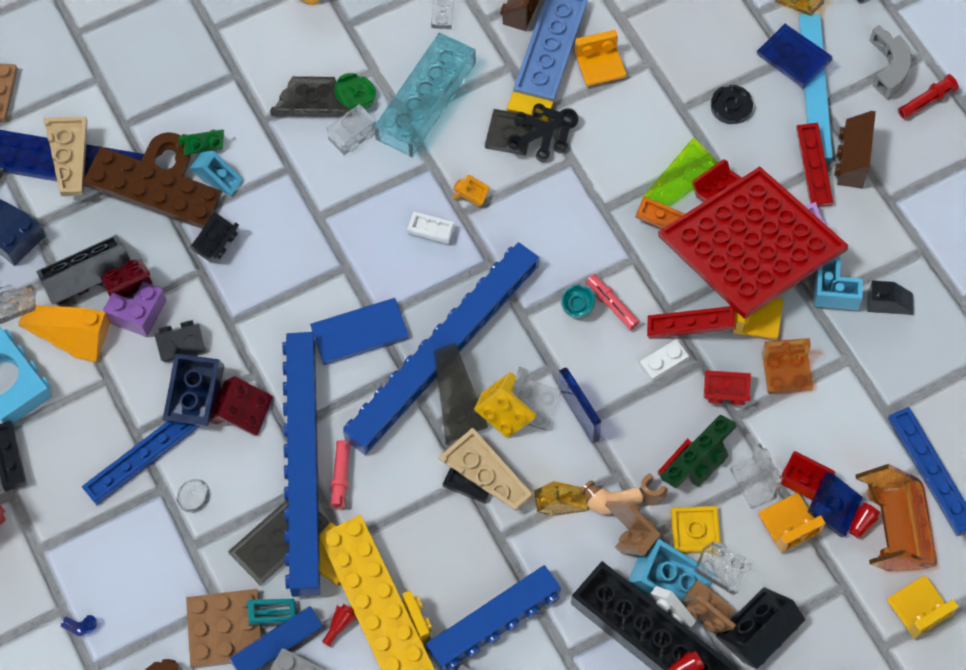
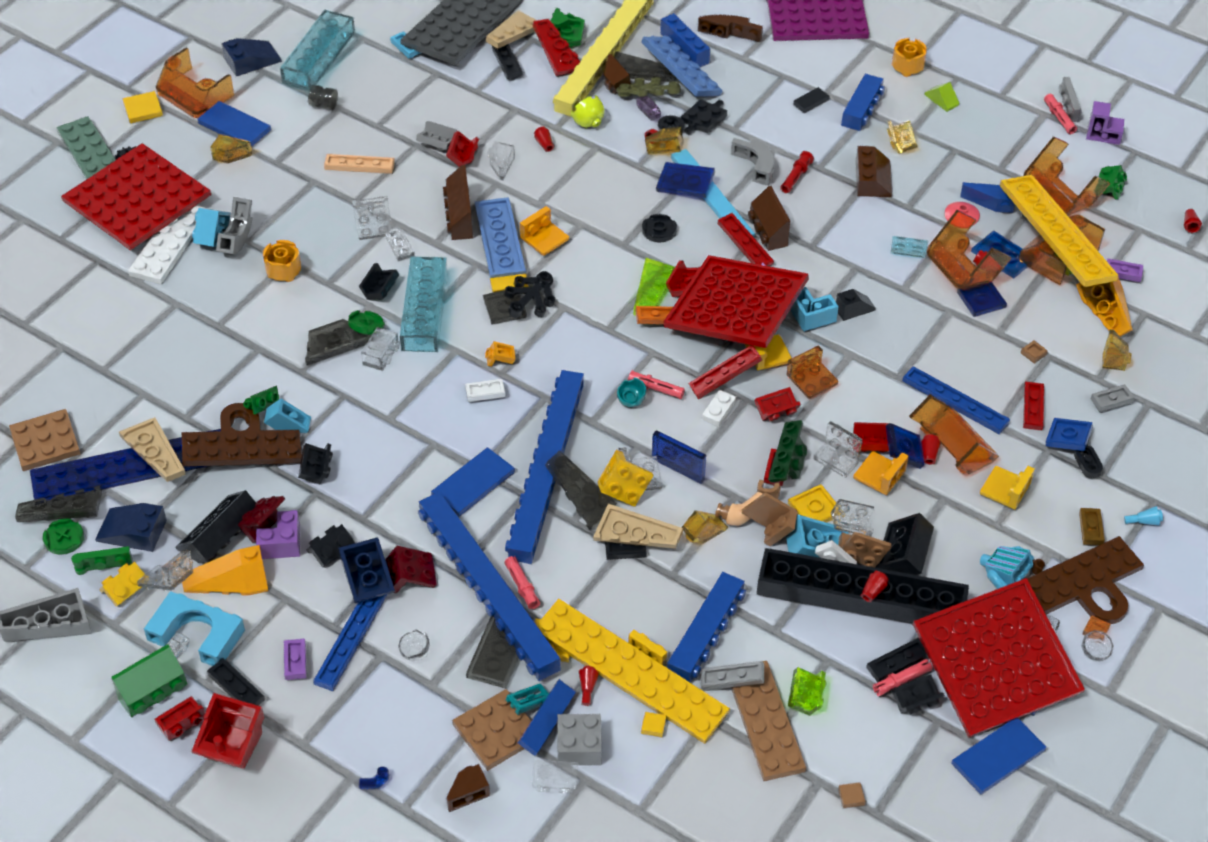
camera: 30 degrees left, 15 degrees down
(77, 454) = (295, 659): none -> medium lavender plate
(394, 46) = (378, 282): none -> black bracket

